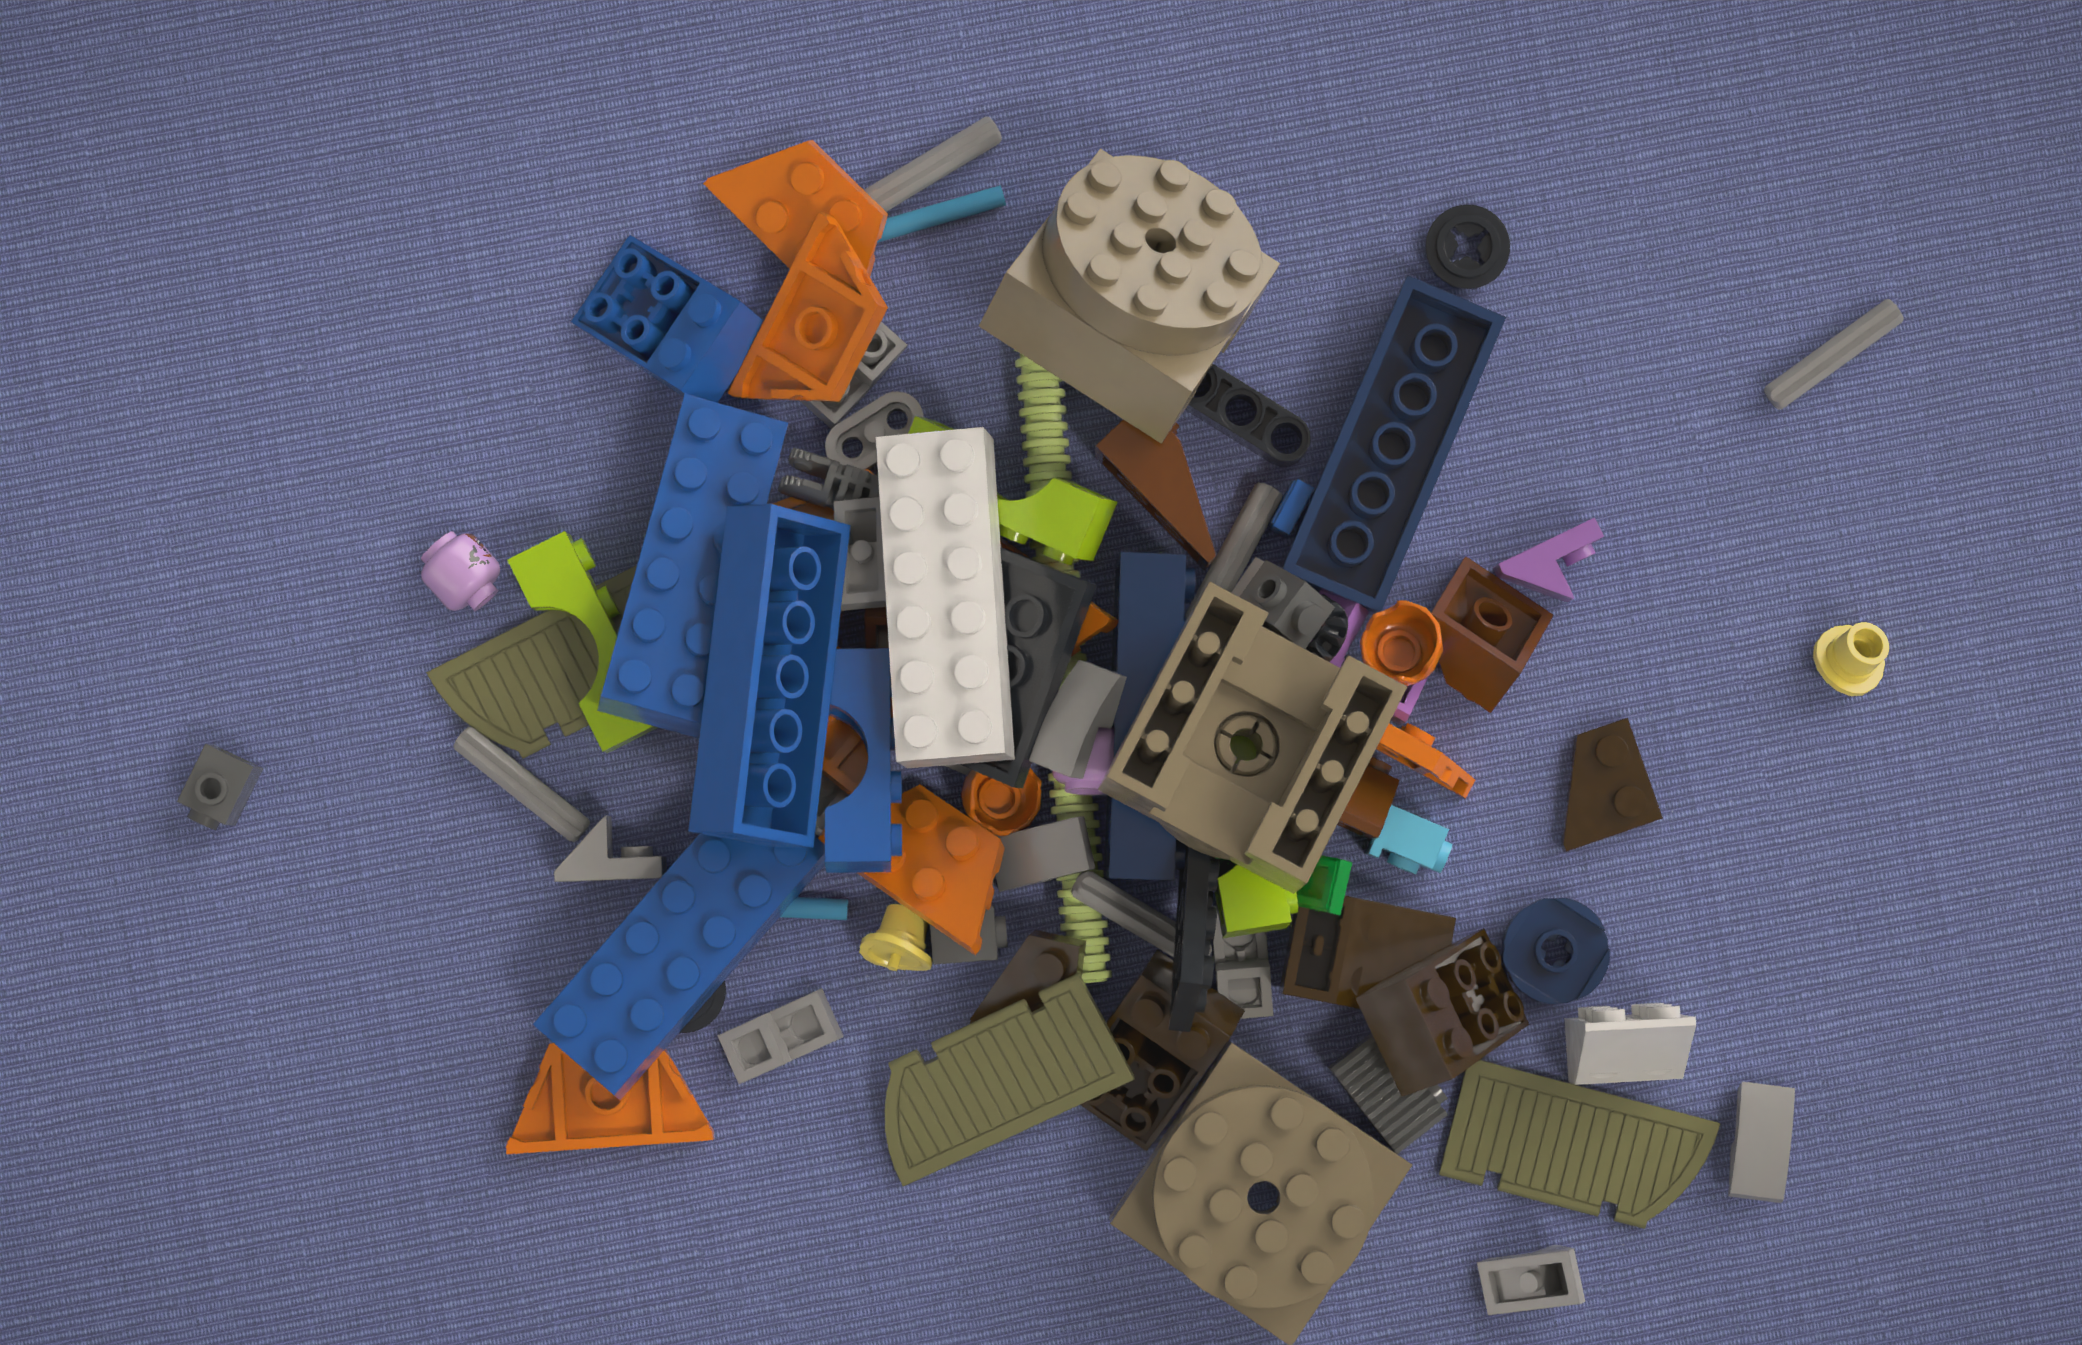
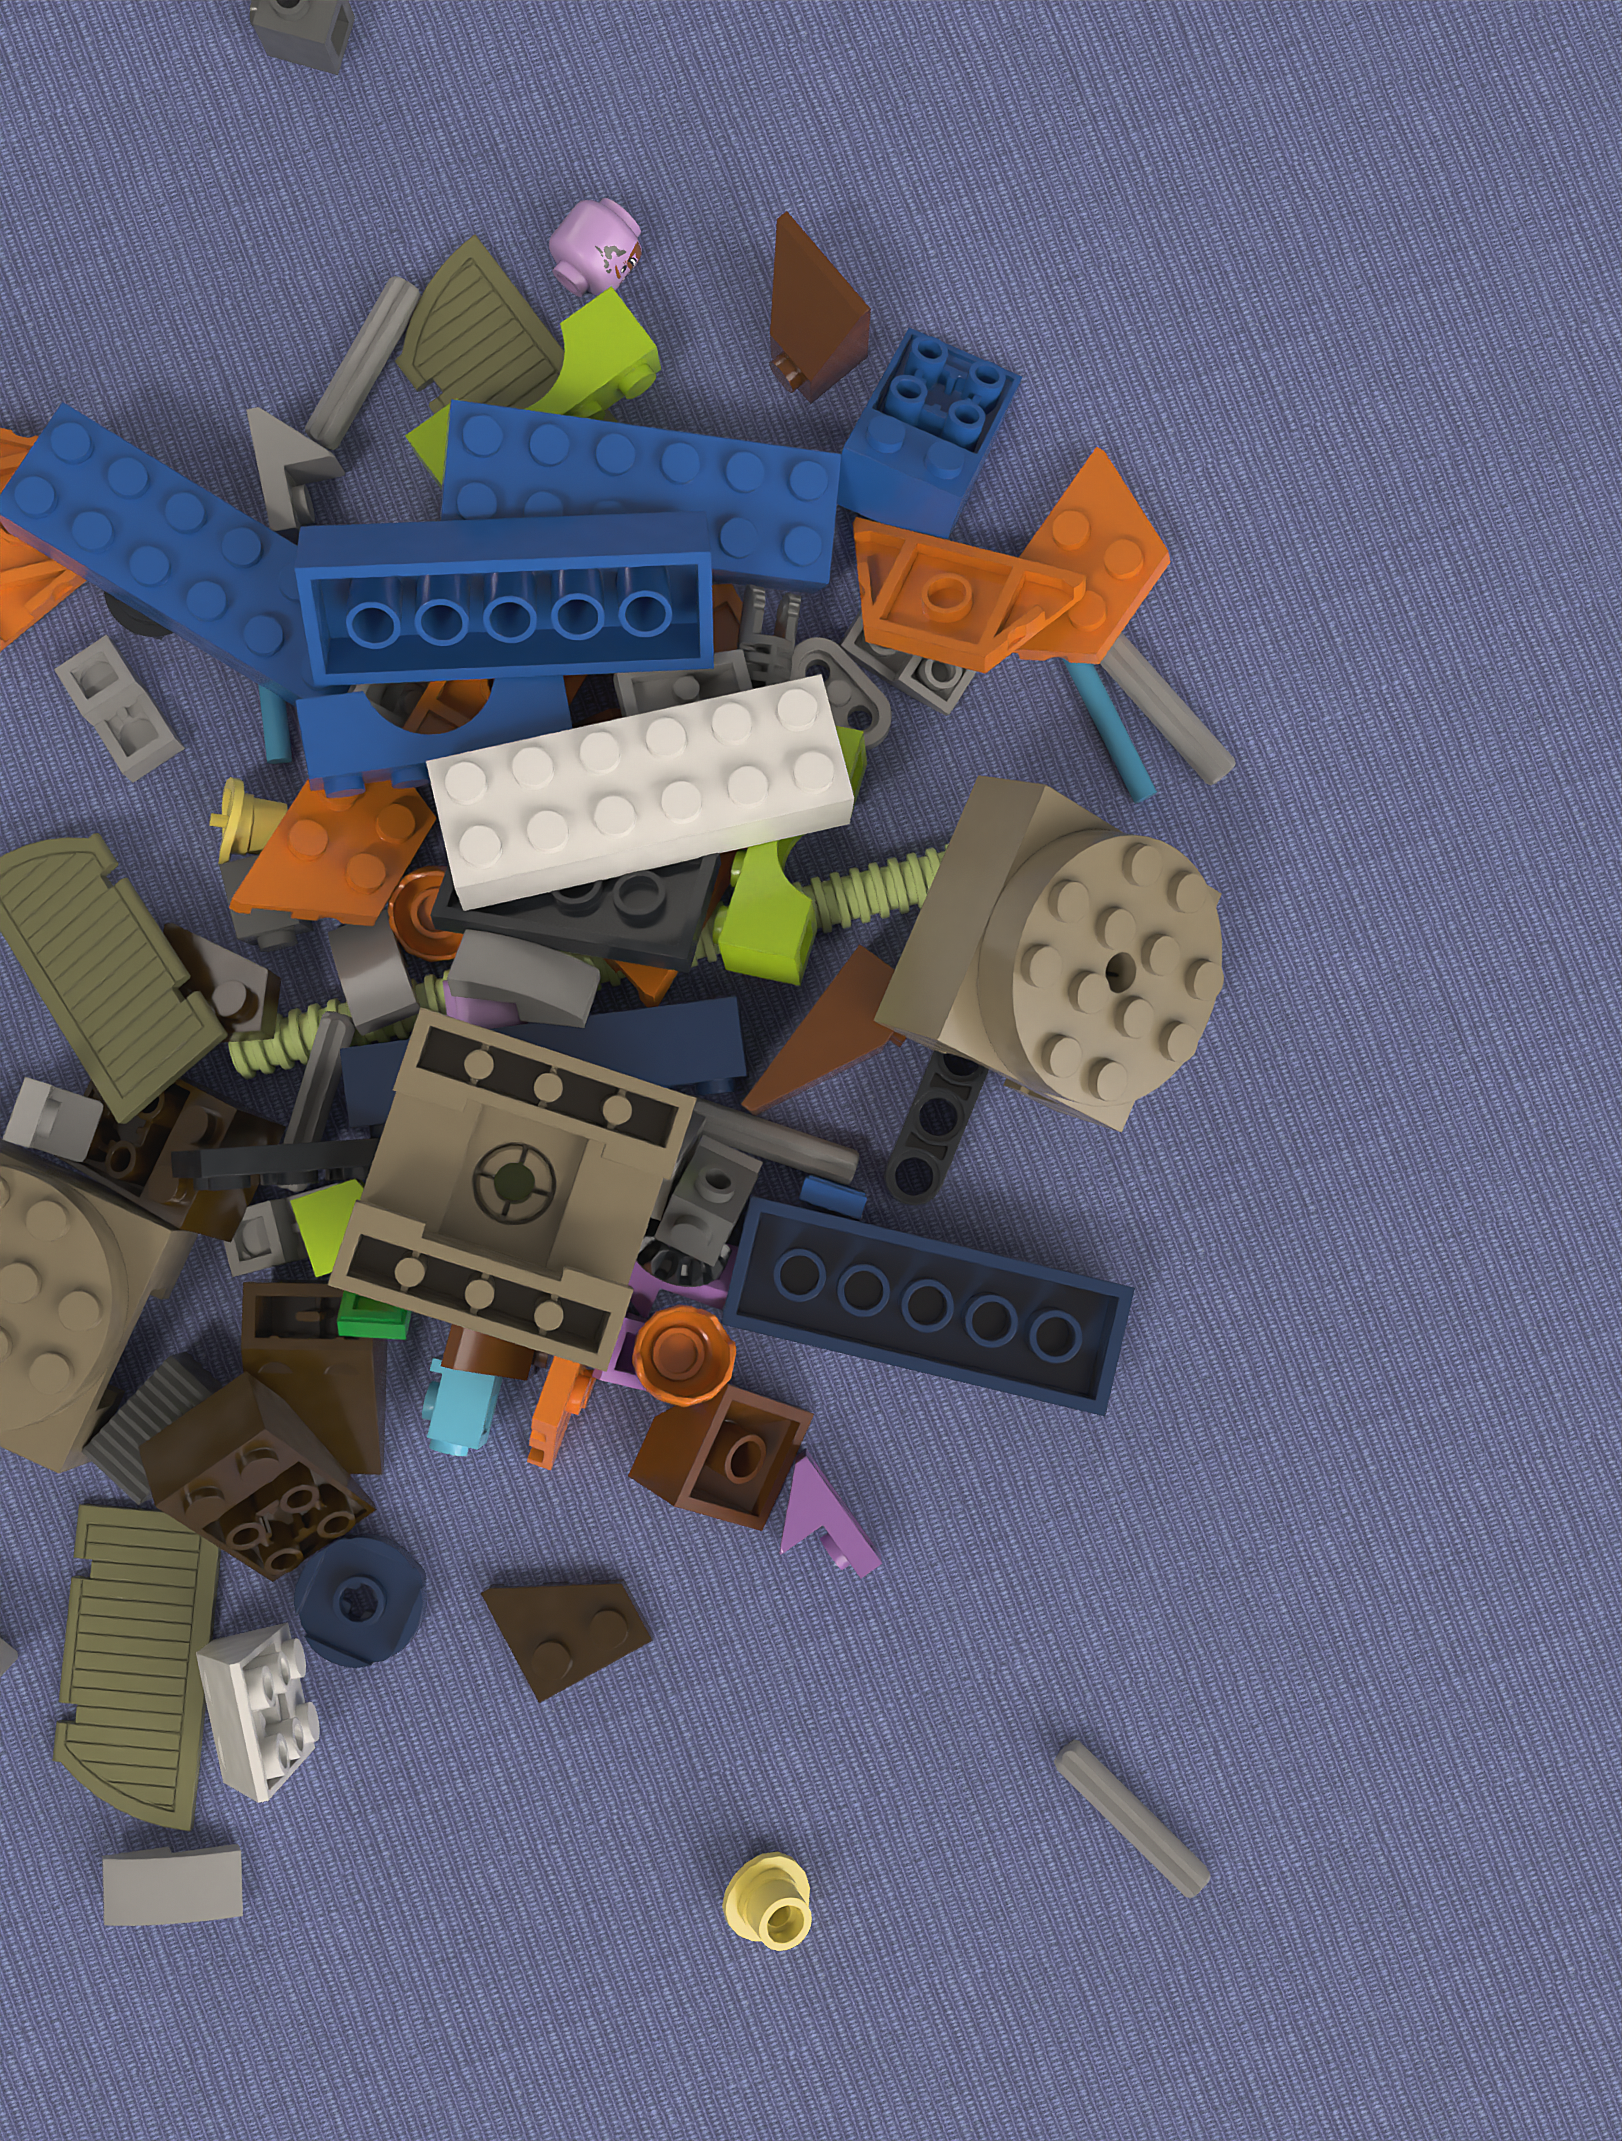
camera: 80 degrees right, 0 degrees up
(557, 401) = (815, 316): none -> reddish brown slope
(1119, 1140) = (53, 1120): none -> light grey slope
(1467, 222) = (1212, 1351): black gear -> none

